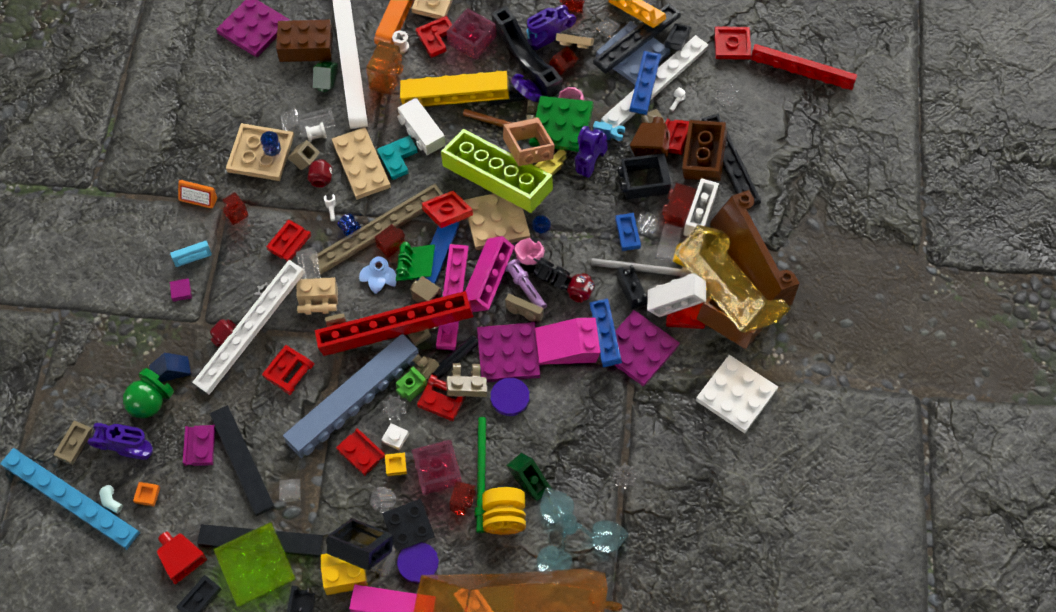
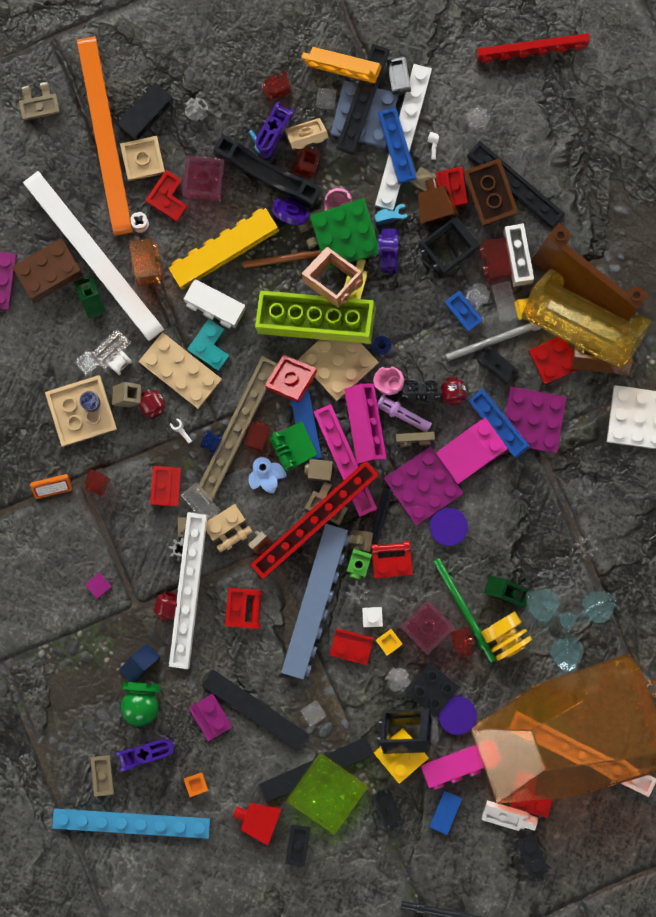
camera: 30 degrees left, 20 degrees up
(107, 500) = (166, 808): light aqua arm -> none
(191, 253) = (86, 547): medium azure tile -> none
(466, 386) = (407, 540): dark tan plate -> none
(676, 295) = (545, 357): white brick -> none
(732, 43) = (453, 54): red plate -> none

